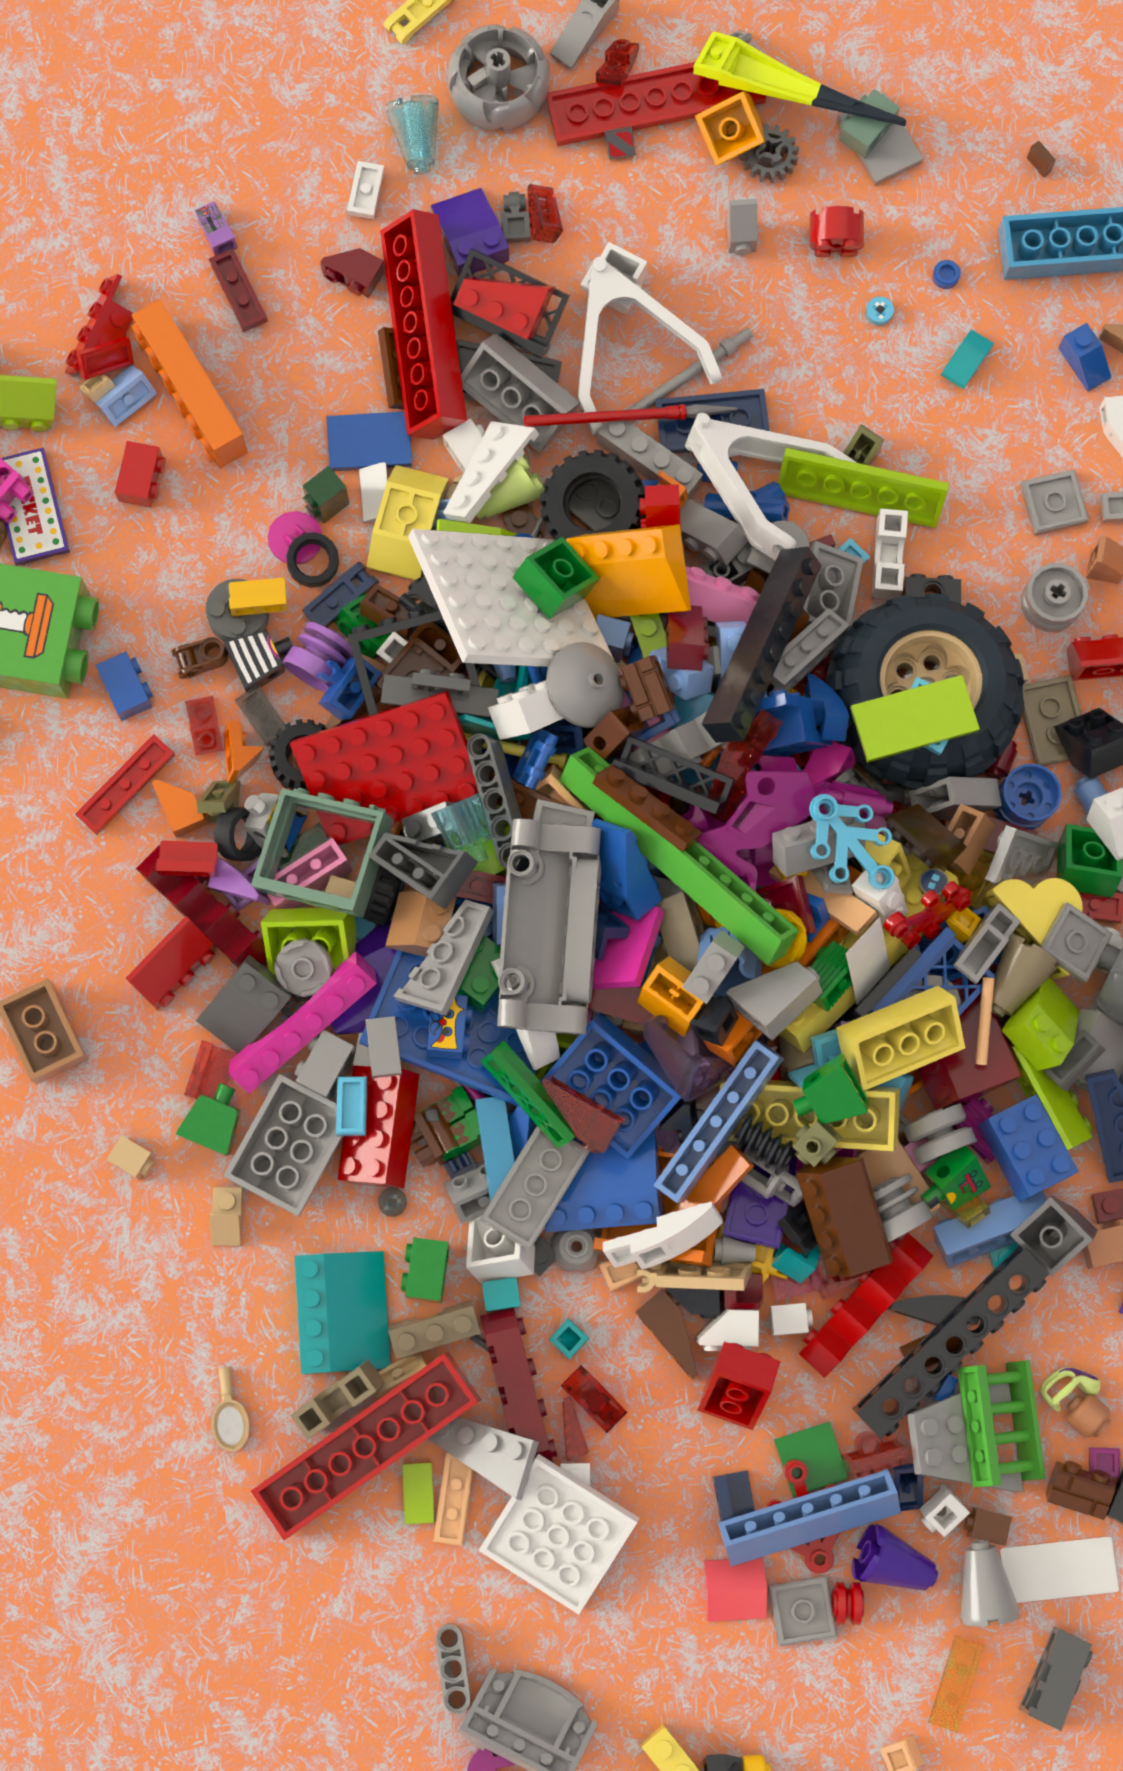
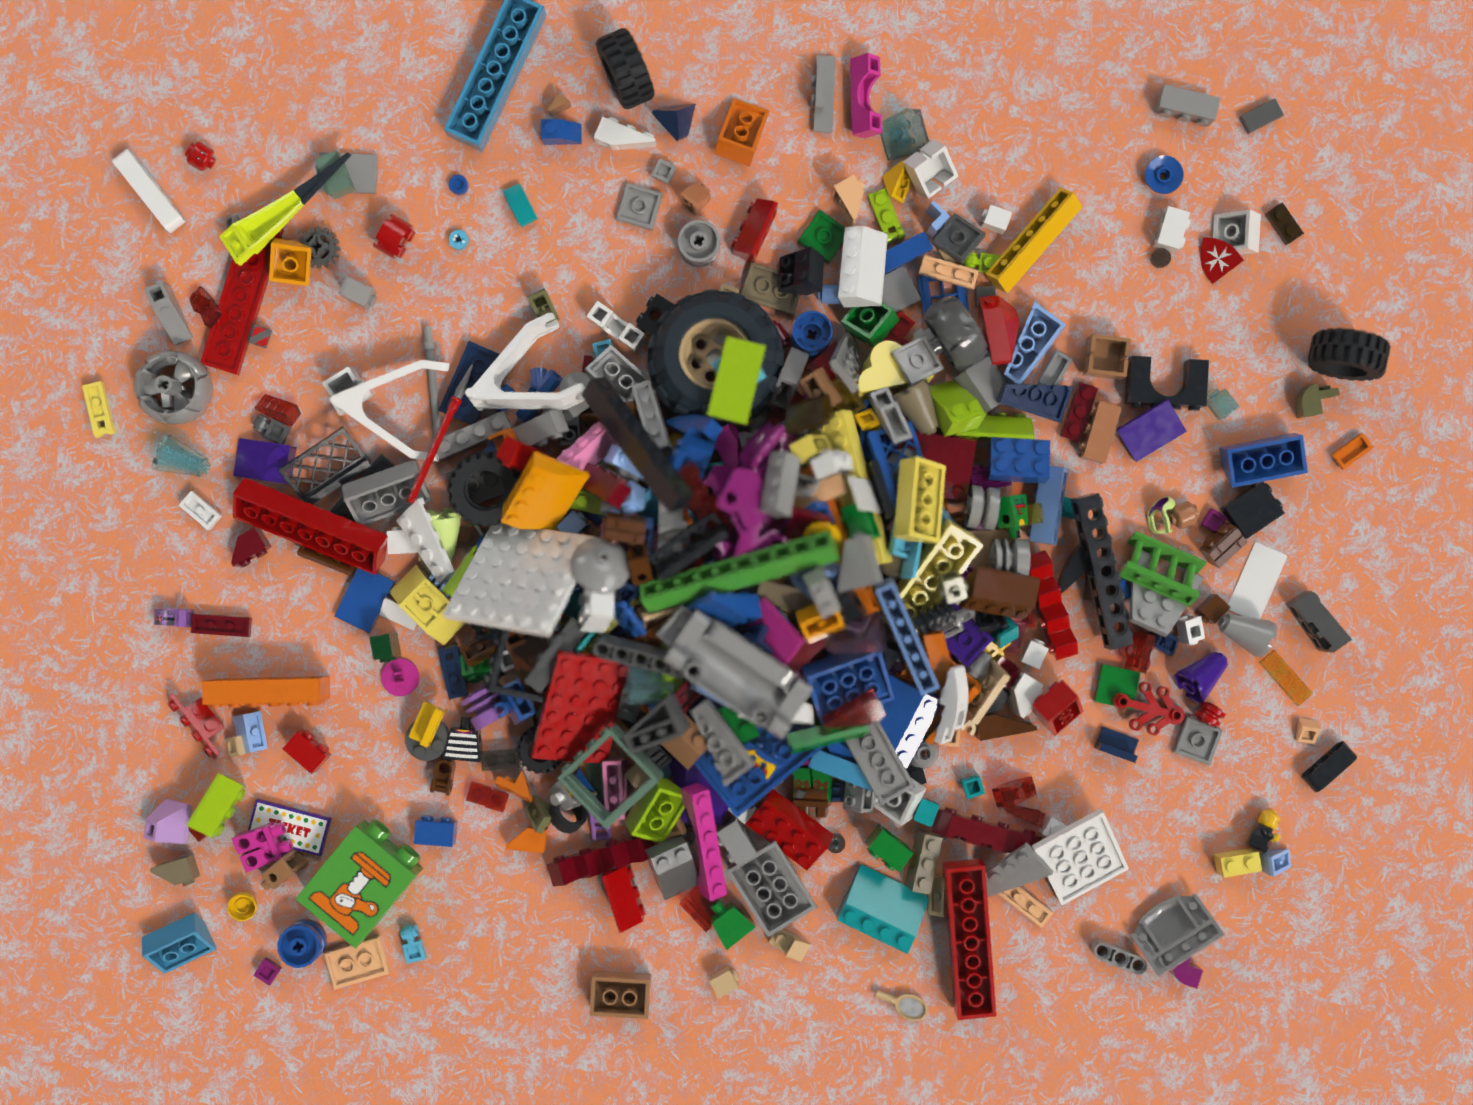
camera: 55 degrees left, 10 degrees up
(105, 358) = (220, 732): red tile -> none
(125, 784) = (497, 863): red plate -> none
(187, 858) = (566, 855): red panel -> none
(236, 883) = (587, 837): medium lavender slope -> none
(303, 967) = (672, 824): light grey tile -> none
(324, 542) = (421, 661): black tyre -> none
(337, 1399) = (932, 931): dark tan arch -> none
(351, 1106) = (771, 841): medium azure tile -> none
(383, 1047) = (749, 806): light grey tile -> none
(418, 1493) = (1009, 921): lime tile -> none
(506, 303) = (326, 469): red wedge -> none
(555, 577) = (522, 543): green brick -> none
(647, 808) = (701, 574): reddish brown plate -> none
(736, 1590) = (1164, 771): coral slope -> none
(809, 1517) = (1154, 711): medium blue brick -> none
(832, 1093) = (931, 562): green torso -> none
(847, 838) = (790, 467): medium azure plant -> none
(861, 487) = (565, 319): lime plate -> none
(928, 921) = (859, 442): red plant -> none
(934, 880) = (839, 427): dark blue tile -> none
(984, 1021) = (934, 443): light nougat bar -> none
(1041, 158) = (418, 82): reddish brown tile -> none
(1054, 1234) = (1077, 474): flat silver slope -> none
(1079, 1059) = (985, 396): dark grey tile -> none

